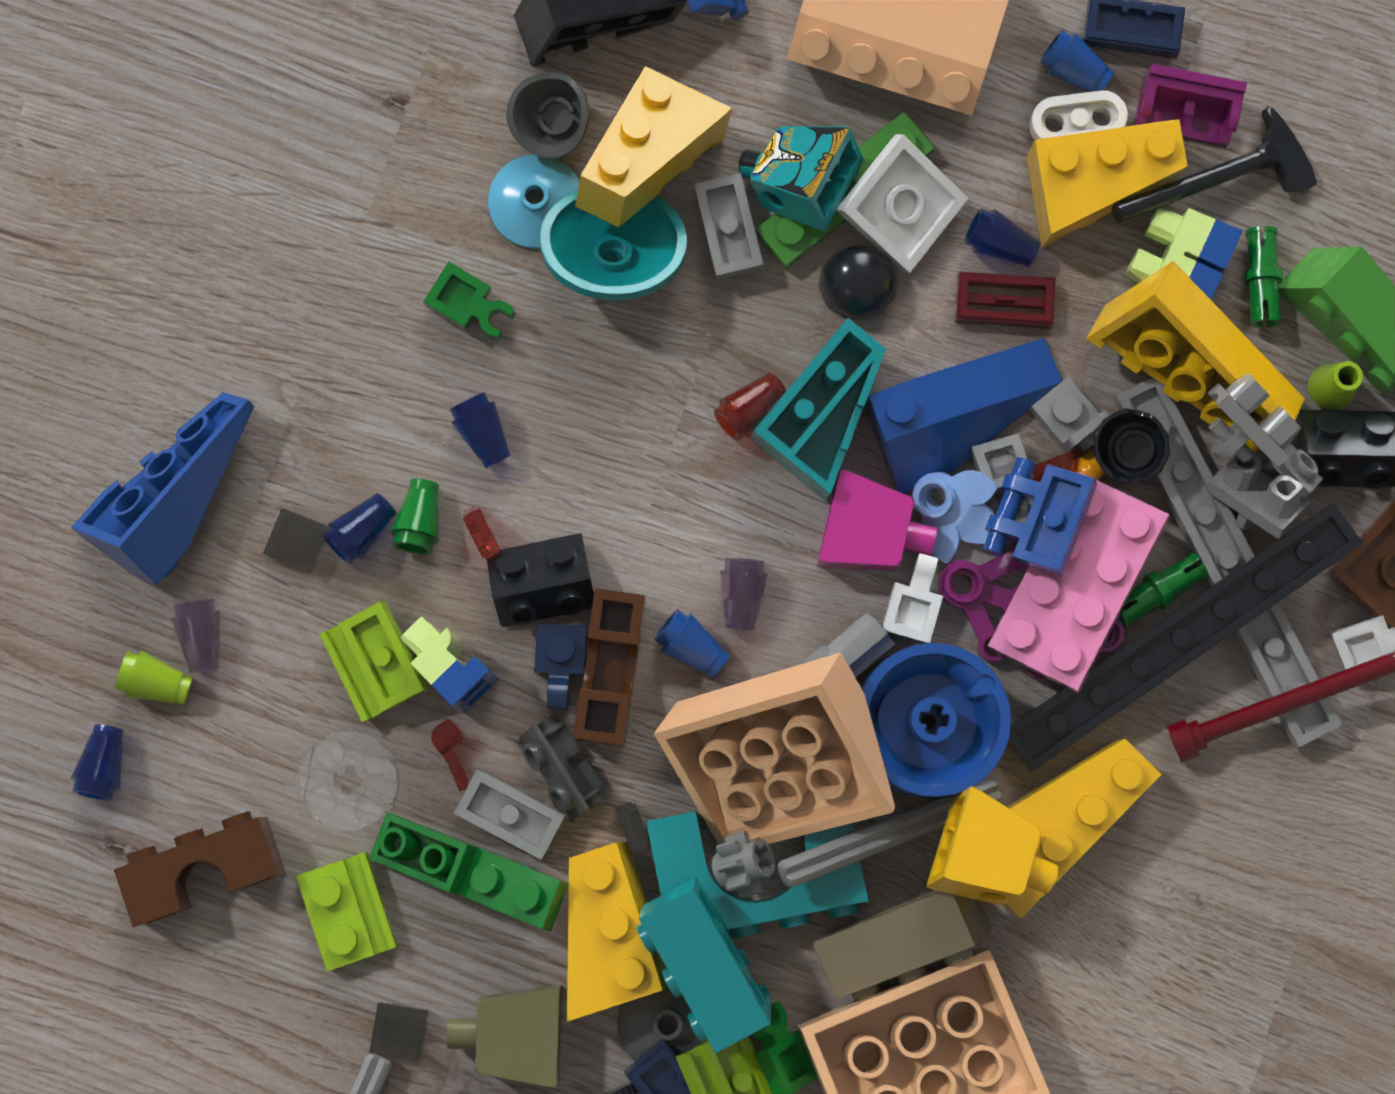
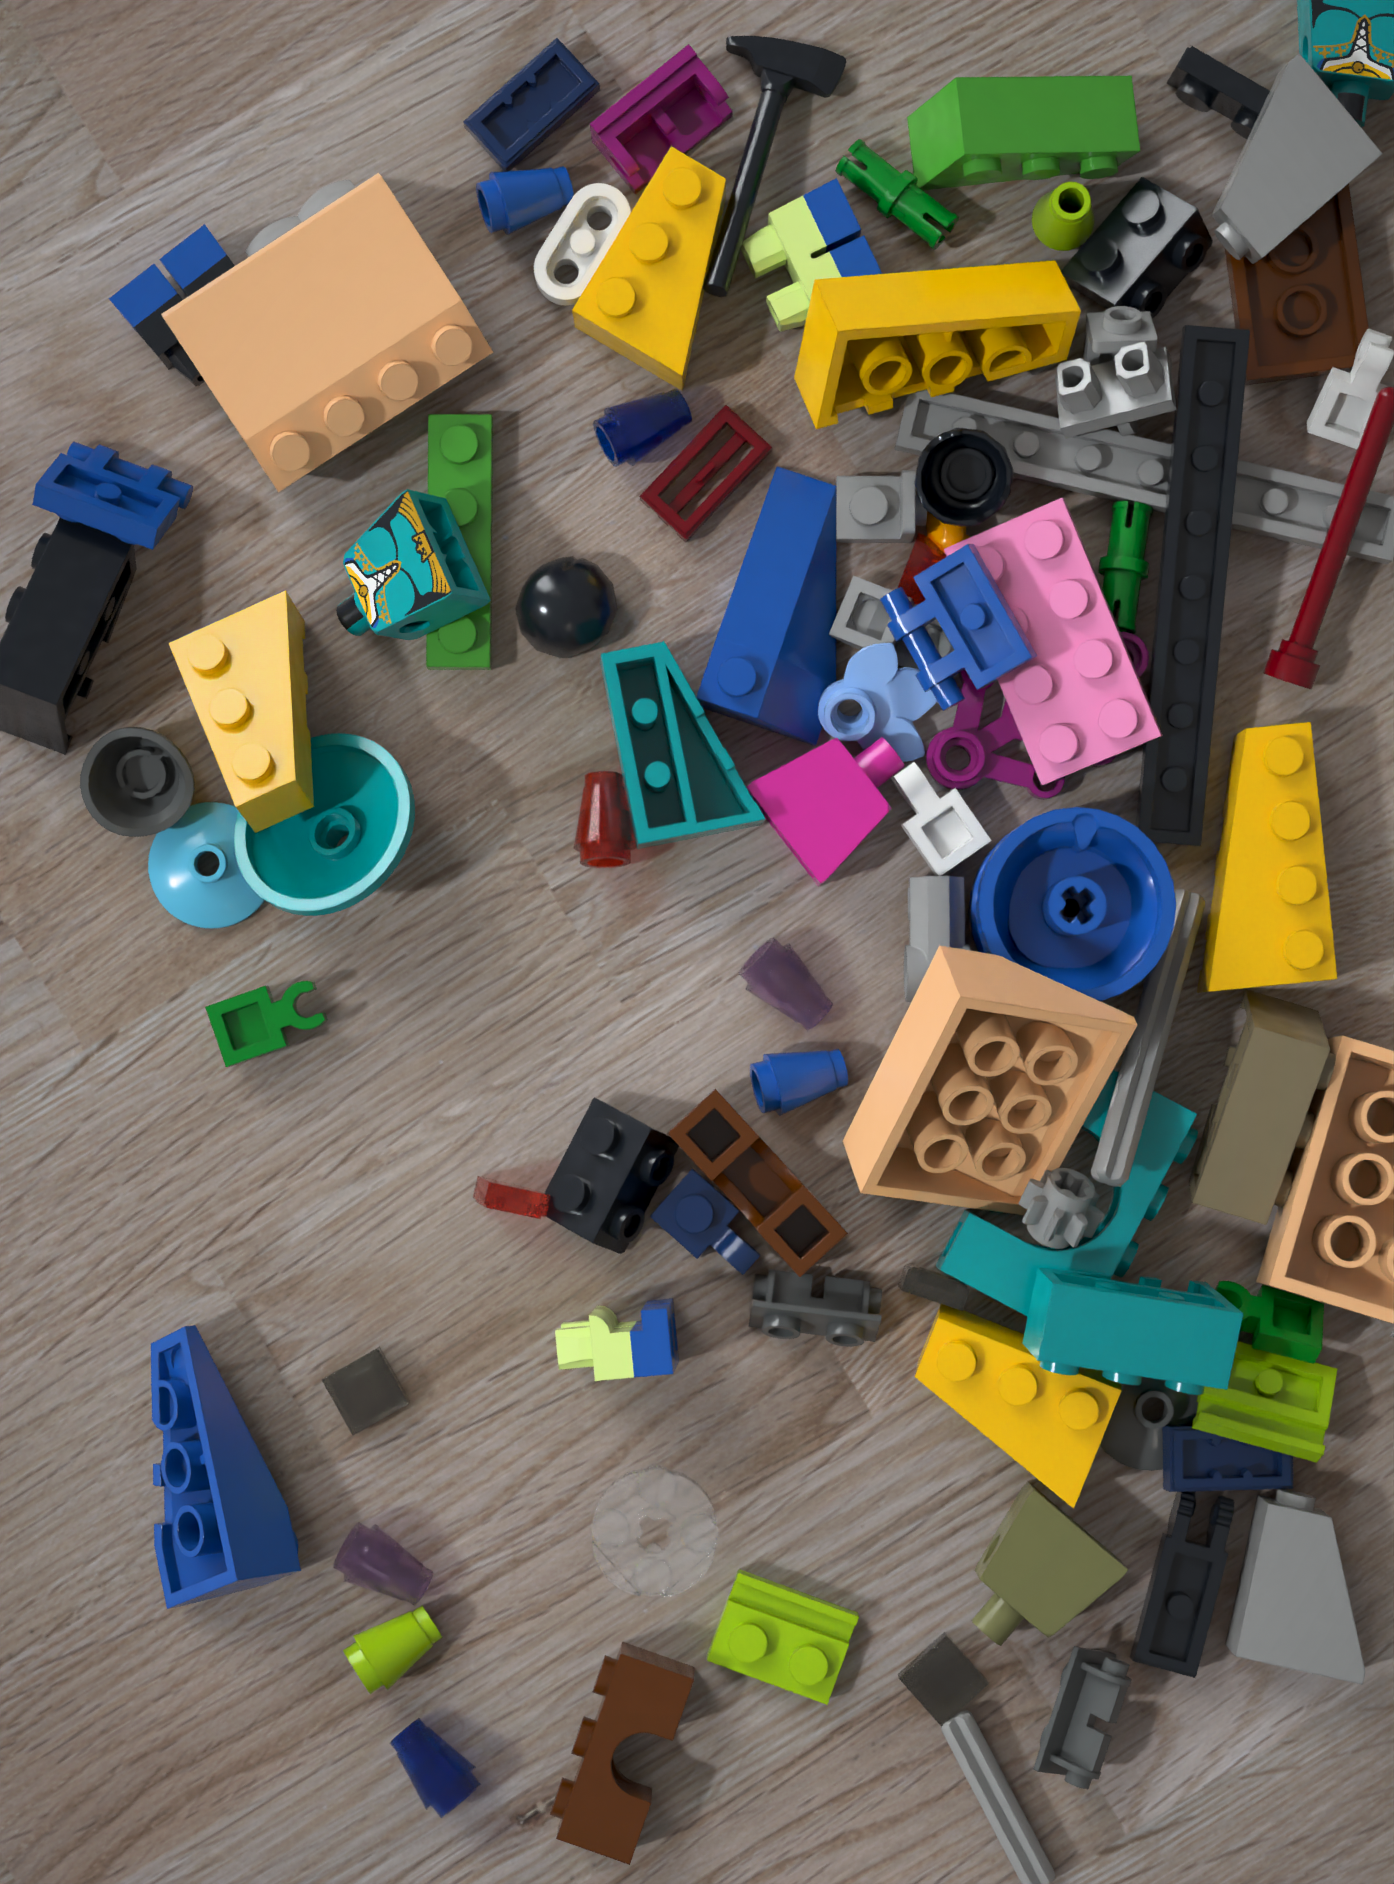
camera: 45 degrees left, 5 degrees up
(359, 528) = (406, 1317): clear blue cone -> none
(373, 661) = (553, 1411): lime plate -> none
(417, 520) = (446, 1252): green cone -> none
(444, 739) = (689, 1402): clear red hand -> none
(469, 871) = (844, 1484): green slope -> none
(481, 429) = (405, 1112): clear blue cone -> none
(509, 814) = (819, 1398): light grey plate -> none
(728, 226) = (400, 691): light grey plate -> none
(902, 203) = (524, 497): white plate -> none
(988, 852) = (1251, 960): yellow torso -> none
(1238, 403) = (1013, 339): light grey hips -> none

